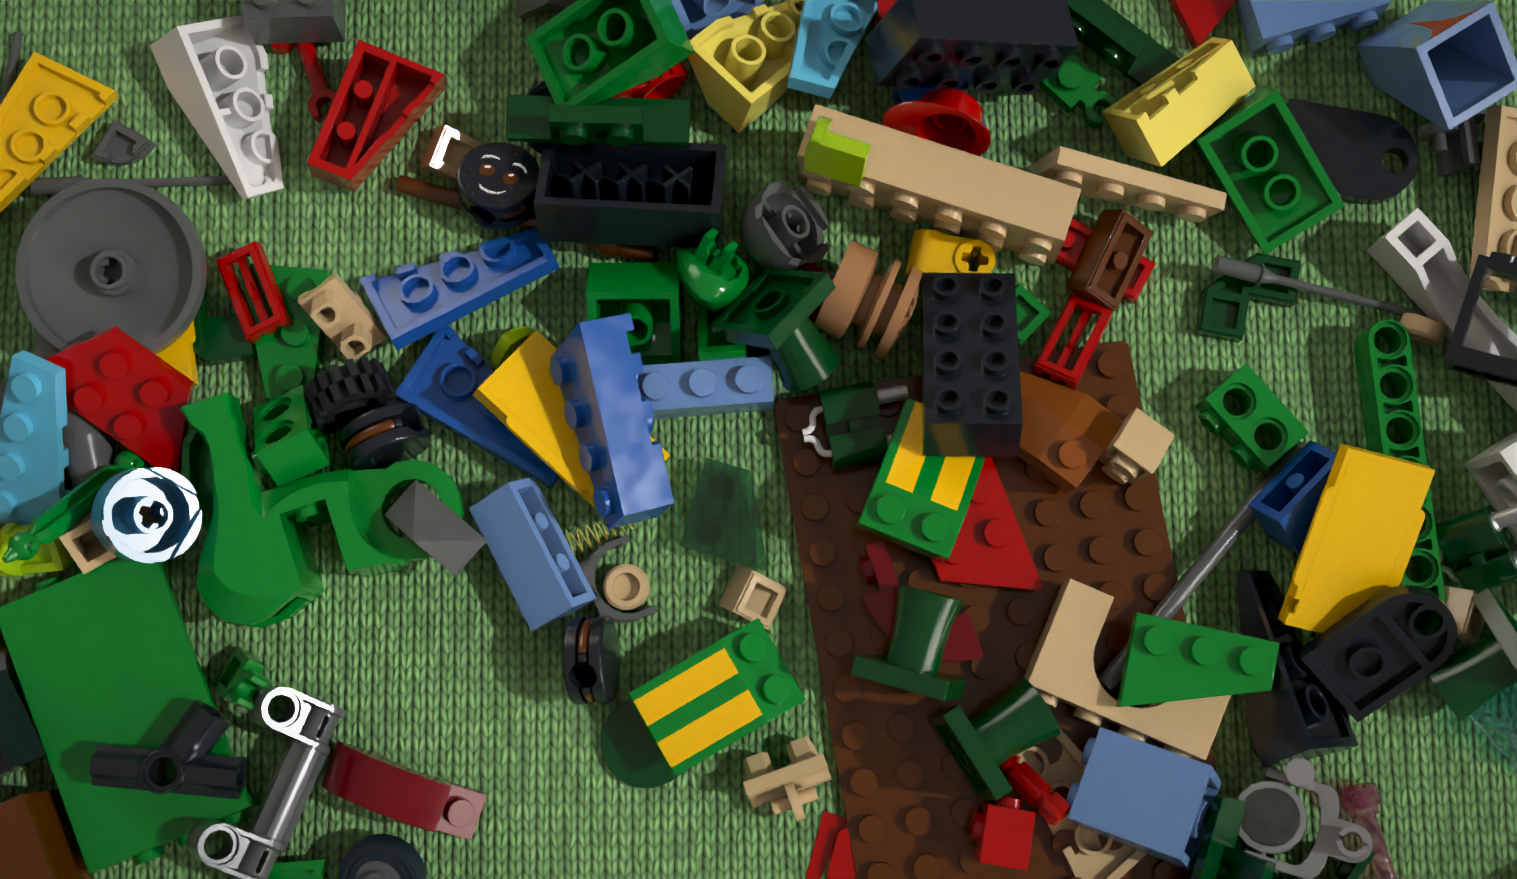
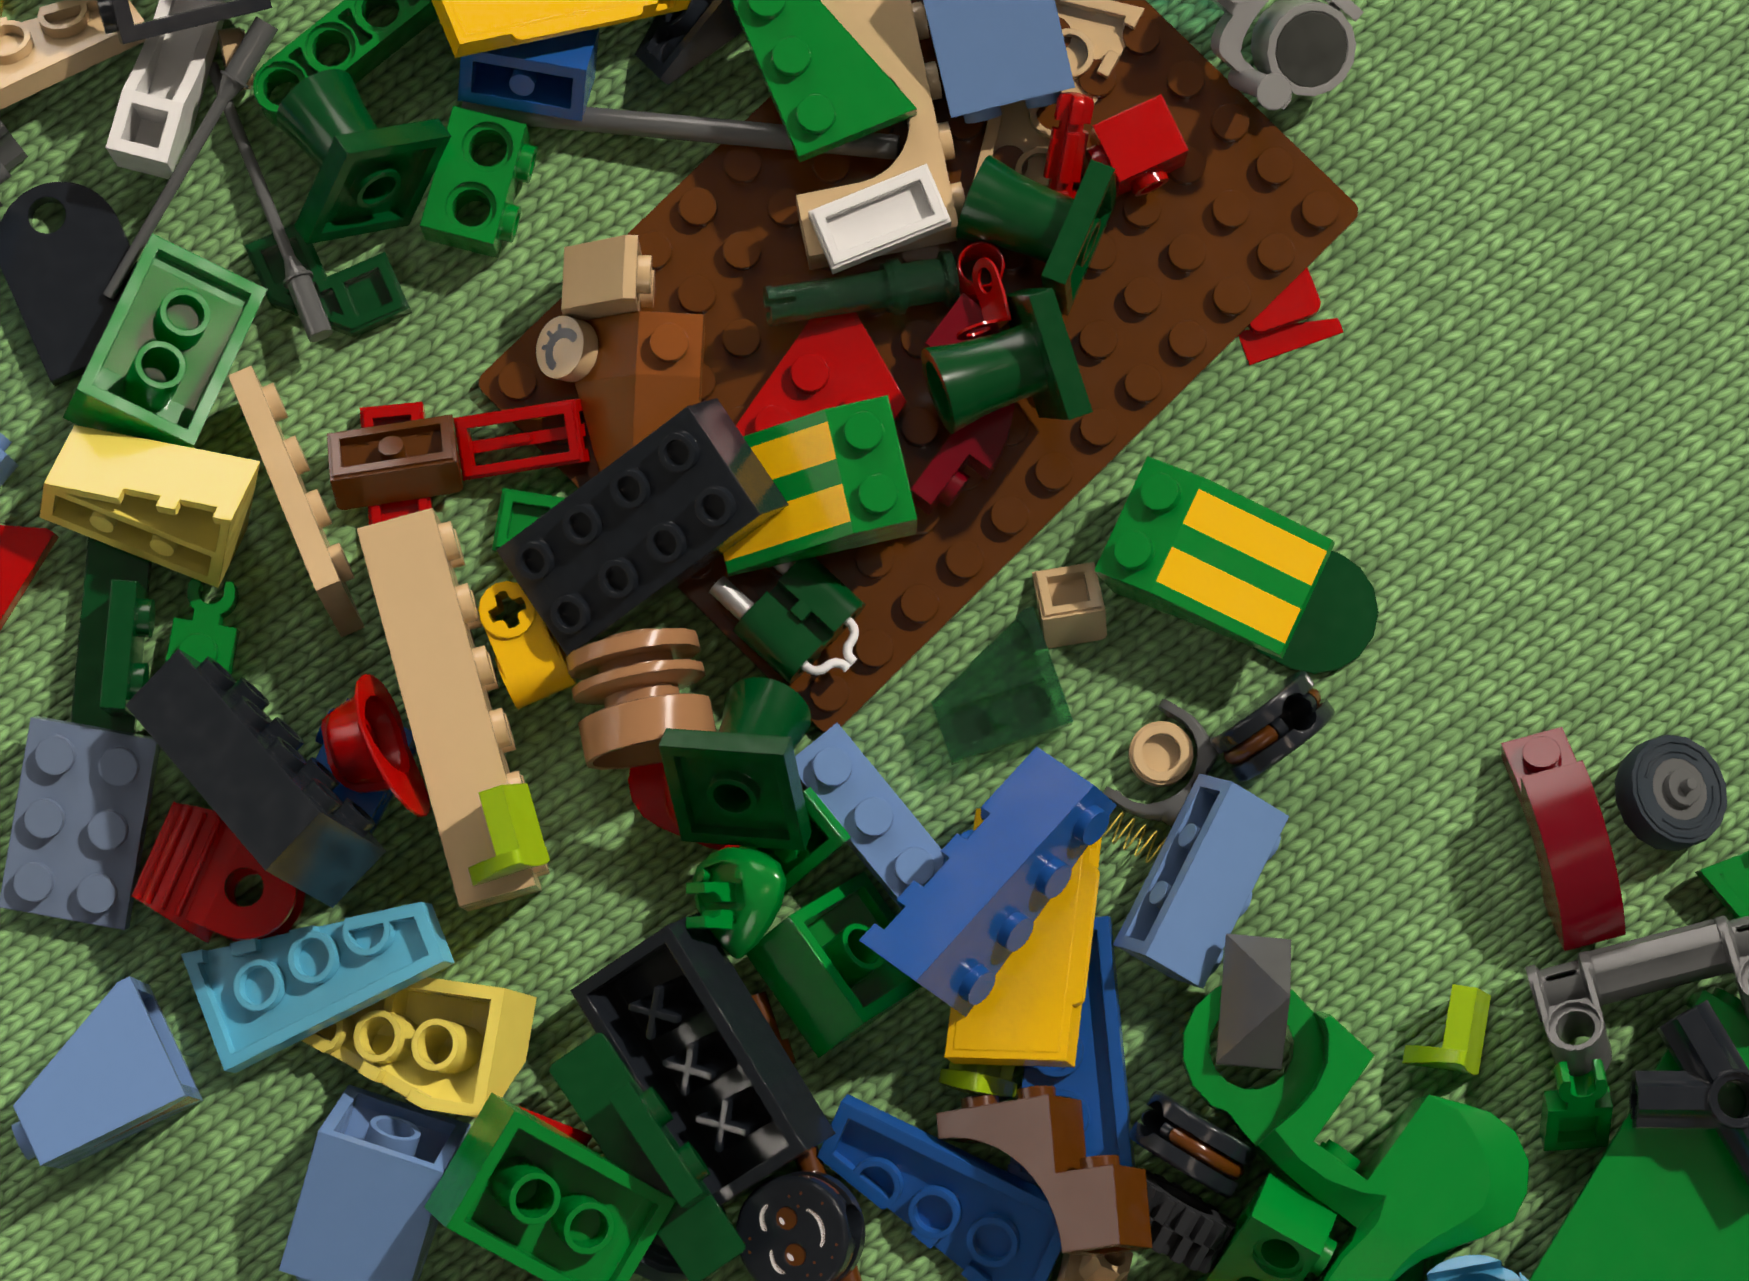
camera: 130 degrees left, 0 degrees up
(333, 643) = (1462, 1034): none -> lime tile
(386, 348) = (1093, 1198): none -> reddish brown arch
(783, 228) = (622, 855): dark grey cylinder -> none
(790, 785) = (1220, 409): tan hips -> none
(965, 668) = (992, 303): none -> red piece
(1006, 679) = (974, 252): none -> red piece
(1017, 619) = (892, 287): none -> clear green pin
(1064, 636) = (879, 218): none -> white tile
(1110, 400) = (567, 349): none -> tan tile
(1304, 346) = (366, 173): none -> dark green plant
(1410, 312) = (232, 82): none -> dark grey piece

